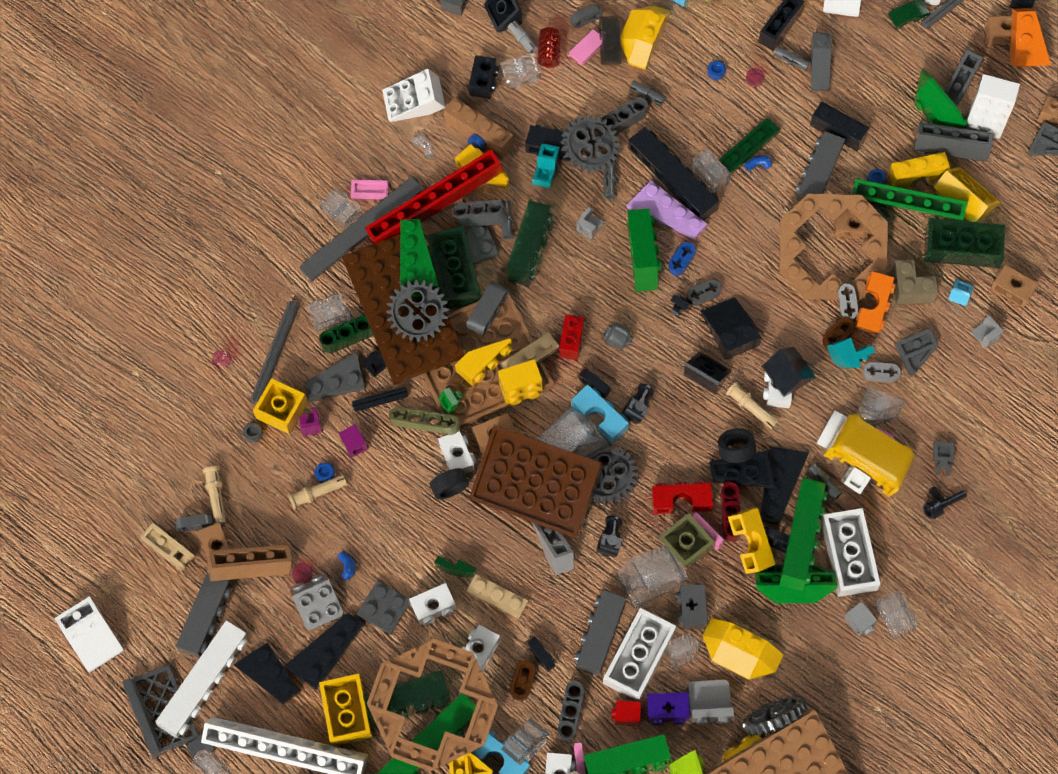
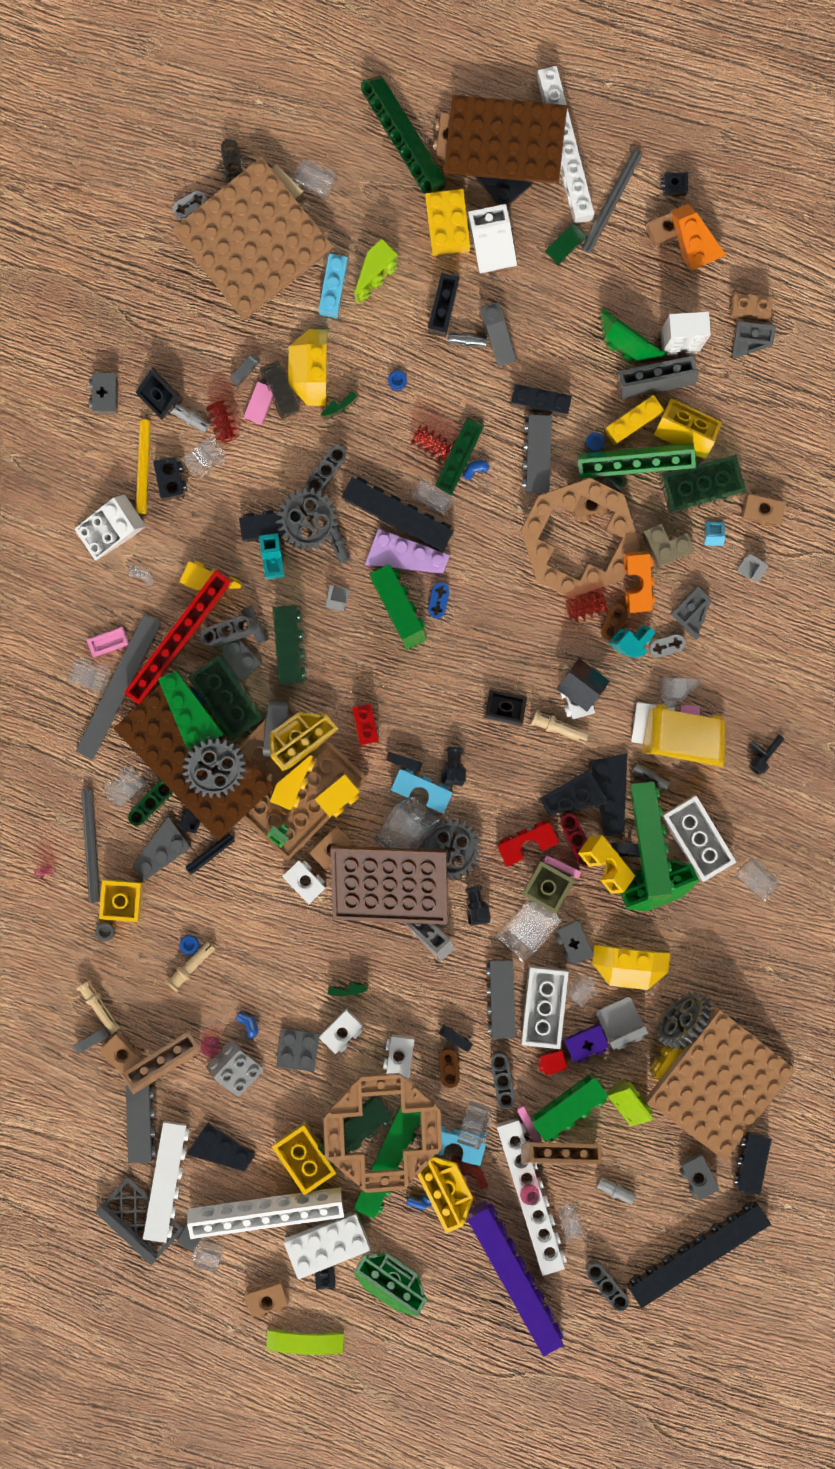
camera: 30 degrees left, 20 degrees up
(89, 634) = (44, 1180): white slope -> none
(166, 546) = (76, 1071): tan plate -> none
(310, 423) = (155, 903): magenta panel -> none
(323, 654) = (262, 1110): black wing -> none
(353, 441) = (203, 906): magenta panel -> none
(446, 423) = (261, 862): olive beam -> none
(449, 483) = (310, 915): black tyre -> none
(464, 61) = (143, 466): none -> yellow axle
(472, 122) = (188, 537): medium nougat brick -> none
(476, 141) = (192, 553): blue tile -> none
(497, 596) = (395, 999): tan plate -> none
(506, 320) = (299, 738): none -> yellow wedge
(537, 350) = (334, 759): tan plate -> none
(617, 336) = (408, 706): dark grey head -> none
(647, 93) = (339, 433): dark grey pin -> none
(652, 72) = (335, 409): none -> dark green slope
(680, 304) = (455, 650): black tile -> none
(701, 290) = (469, 624): dark grey beam -> none
(726, 127) = (432, 443): none -> clear red piece
(731, 328) = (510, 654): black slope -> none
(736, 455) = (553, 764): black tyre -> none
(754, 77) = (438, 374): clear pink tile -> none
(817, 309) = (586, 607): none -> clear red piece
(852, 301) = (615, 585): light grey beam -> none
(855, 479) = (679, 768): white brick -> none
(861, 620) = (728, 896): light grey brick -> none
(943, 454) = (750, 708): dark grey plate -> none
(963, 76) = (643, 299): dark grey slope -> none

